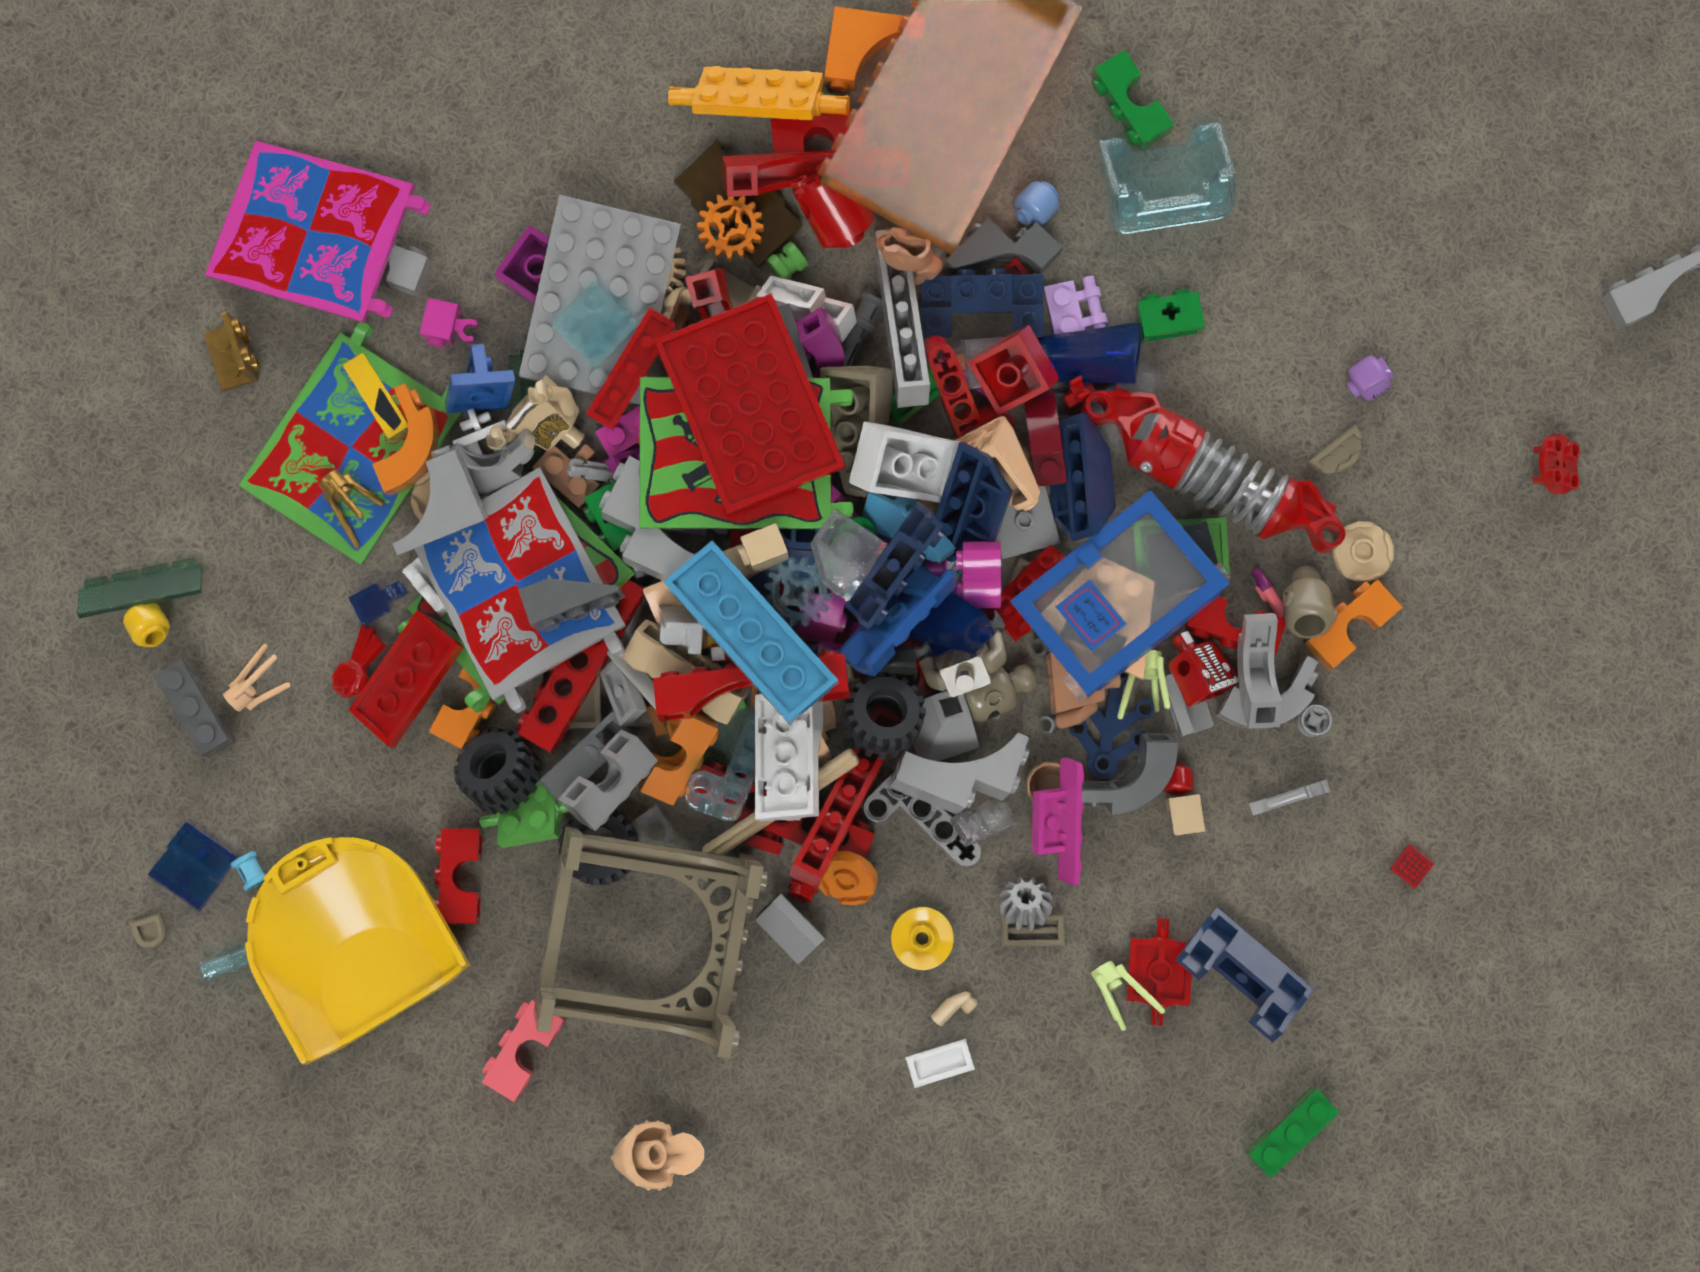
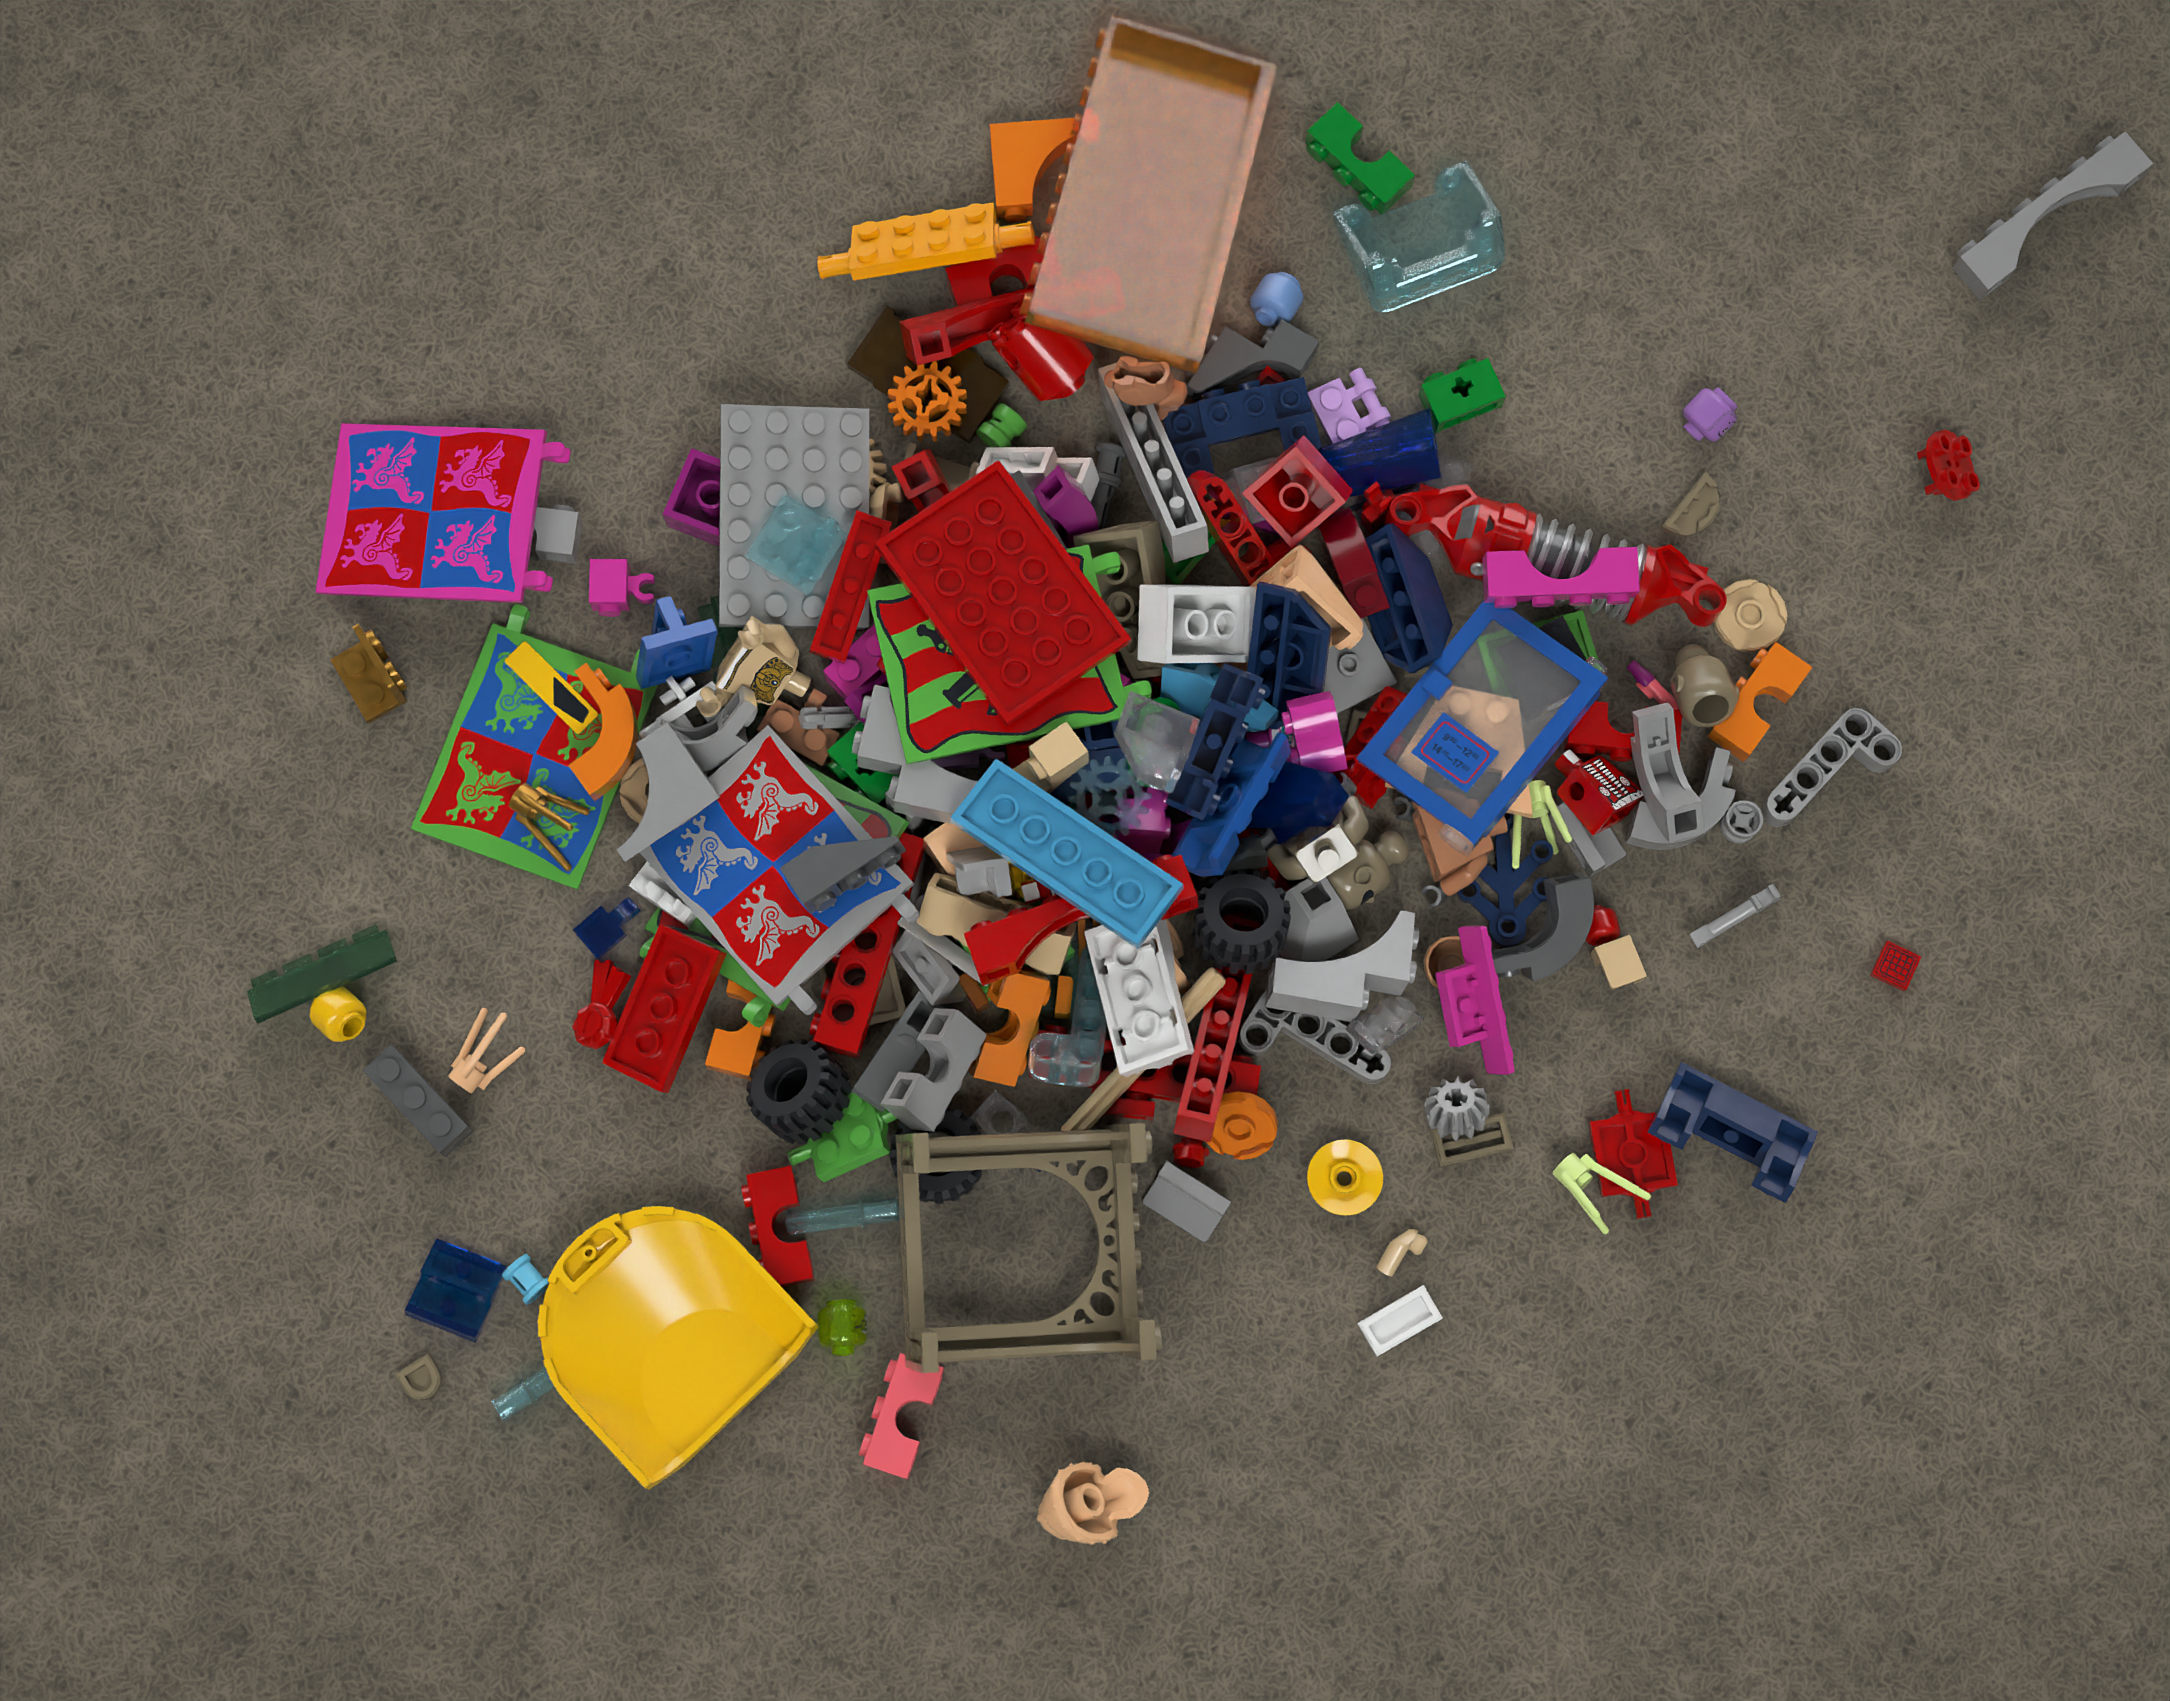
camera: 15 degrees left, 5 degrees down
(491, 967) = (842, 1326): none -> clear neon green head
(512, 878) = (844, 1216): none -> clear light blue axle
(730, 741) = (1064, 997): none -> orange tile
(1170, 482) = (1513, 579): none -> dark pink arch
(1302, 1123) = (1833, 1306): green arch -> none
(1390, 694) = (1821, 770): none -> light grey beam

